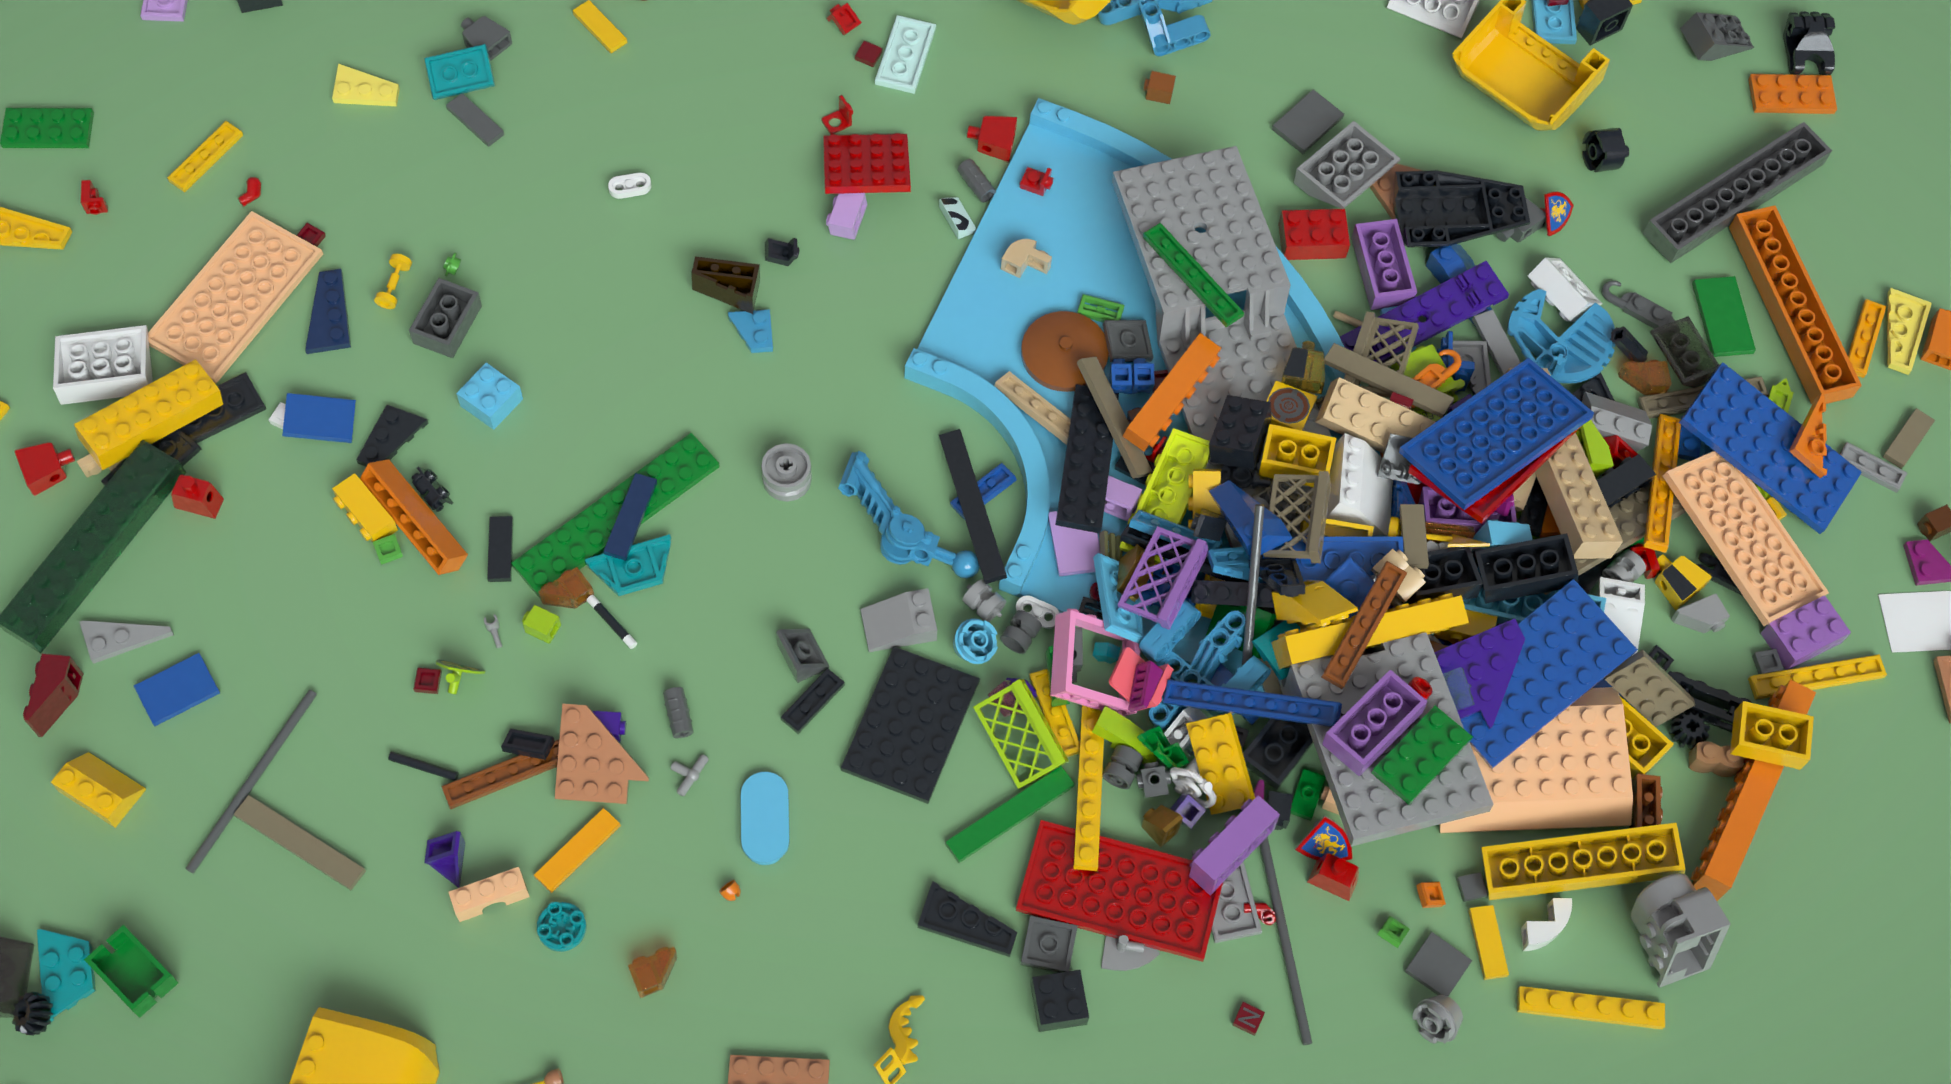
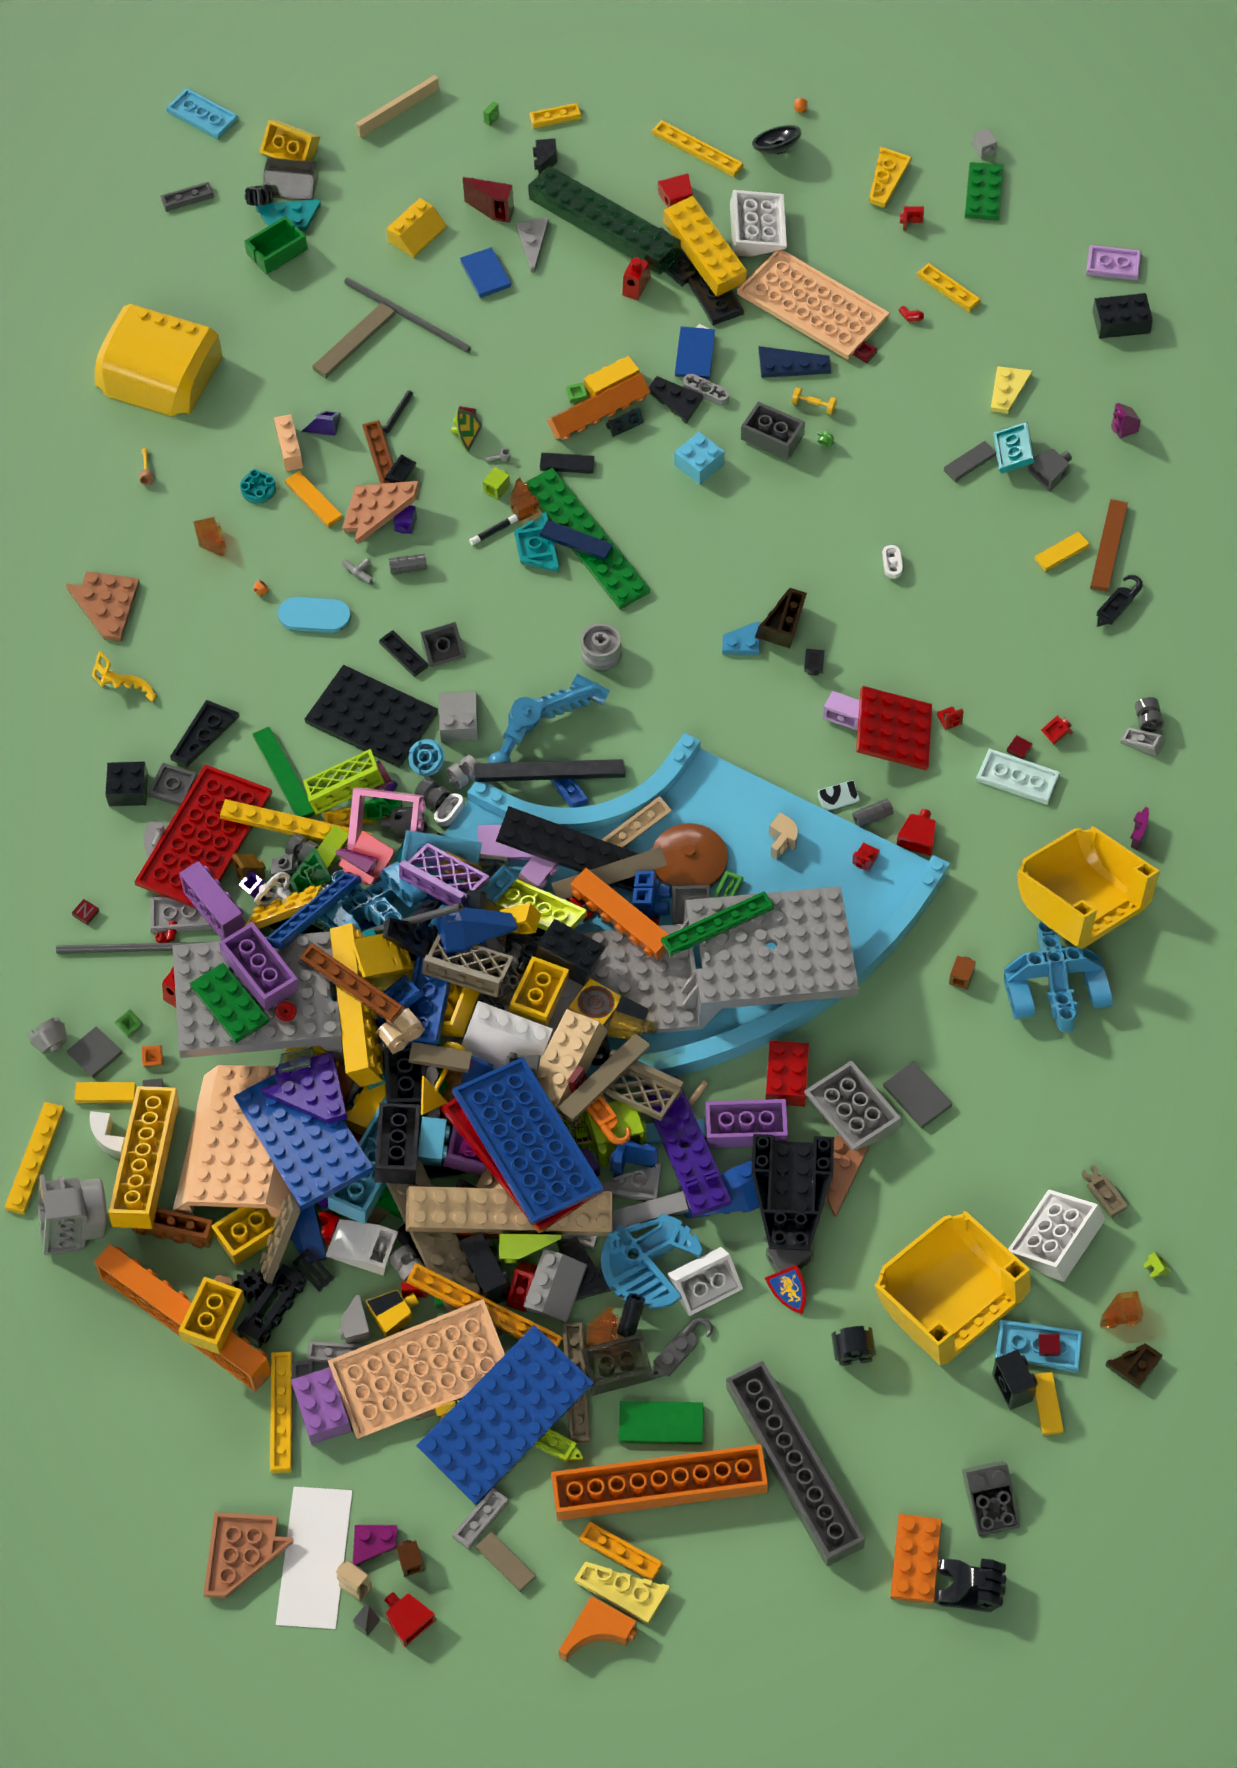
camera: 105 degrees right, 5 degrees down
(375, 393) = (711, 395): none -> light grey beam
(1738, 631) = (321, 1352): none -> light grey tile
(1811, 439) = (499, 1444): orange wing -> none

